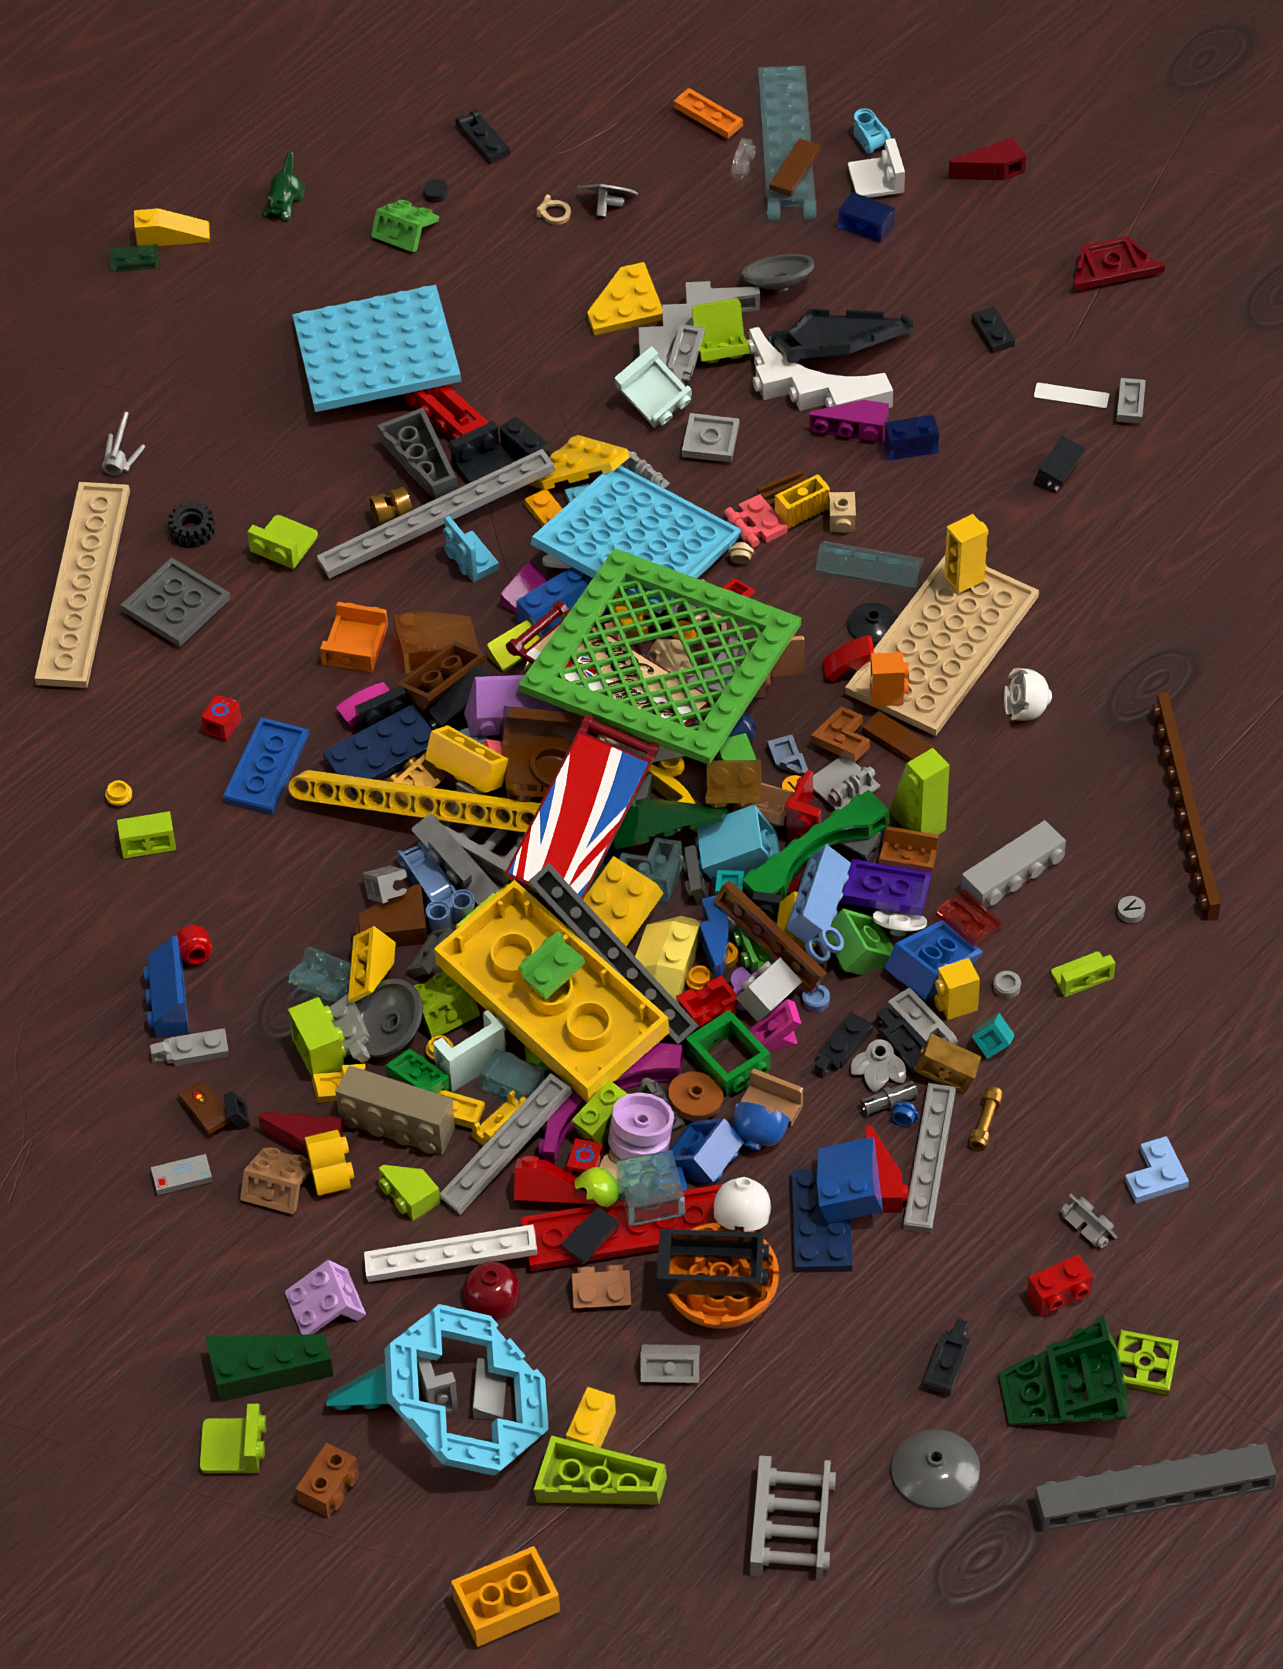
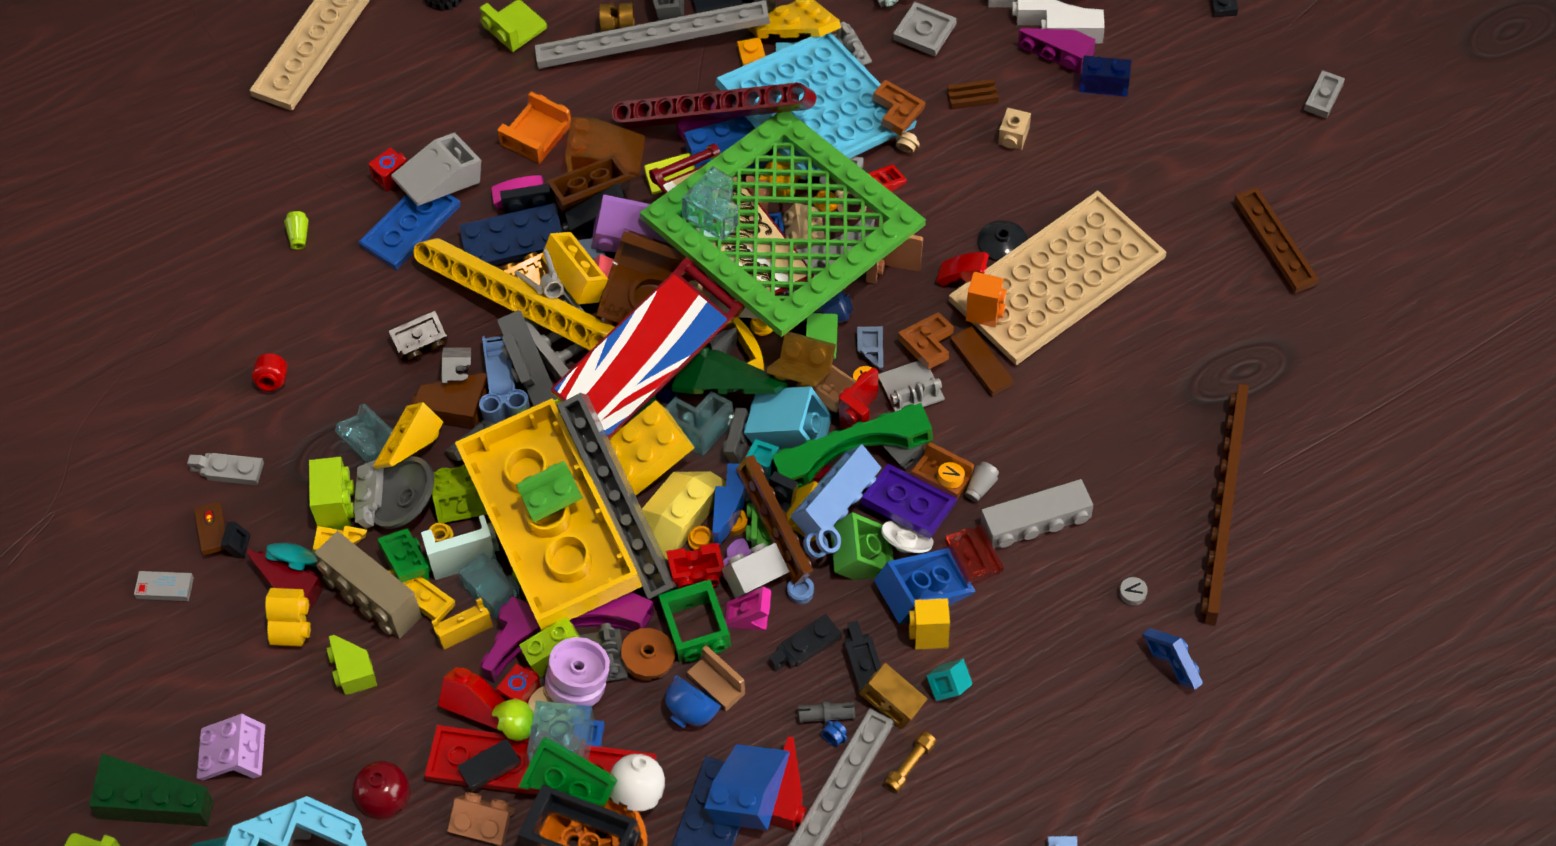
camera: 20 degrees right, 5 degrees up
(118, 793) = (273, 213): yellow plate -> none
(146, 835) = (277, 258): lime hinge -> none
(150, 798) = (296, 227): none -> lime cone
(166, 990) = (227, 409): blue slope -> none
(175, 602) = (399, 54): dark grey plate -> none
(275, 1179) = (236, 616): medium nougat bracket -> none
(278, 703) = (439, 170): none -> light grey slope
(294, 1104) = (292, 553): none -> teal dish
(329, 869) = (418, 335): none -> bracket
(450, 779) = (549, 283): none -> light grey plant
(450, 1253) = (358, 741): white plate -> none
(468, 552) = (667, 74): medium azure bracket -> none
(505, 1143) = (453, 648): light grey tile -> none
(551, 566) = (722, 109): none -> dark red beam
(589, 659) = (710, 205): none -> clear light blue brick
(675, 1210) = (568, 773): none -> green wing
(706, 1149) = (632, 712): blue slope -> none
(725, 517) = (902, 107): none -> dark orange plate
(761, 517) = (941, 116): coral plate -> none
(802, 501) = (980, 109): yellow brick -> none
(869, 564) = (1020, 183): clear light blue fence -> none
(879, 1068) = (828, 679): light grey plate -> none
(919, 851) = (950, 475): none -> light orange tile
(919, 1016) = (888, 641): light grey plate -> none
(923, 794) = (971, 423): lime wedge -> none
(948, 850) = (982, 480): none -> light grey cone
(965, 553) = (1104, 198): yellow brick -> none
(1007, 984) = (985, 631): light grey tile -> none
(1026, 695) = (1115, 350): white cylinder -> none
(1059, 464) = (1232, 136): black hinge -> none
(1071, 395) = (1272, 74): white sticker -> none
(1083, 973) = (1062, 641): lime panel -> none
(1138, 551) = (1276, 240): none -> reddish brown plate
(1194, 947) = (1174, 651): none -> blue plate

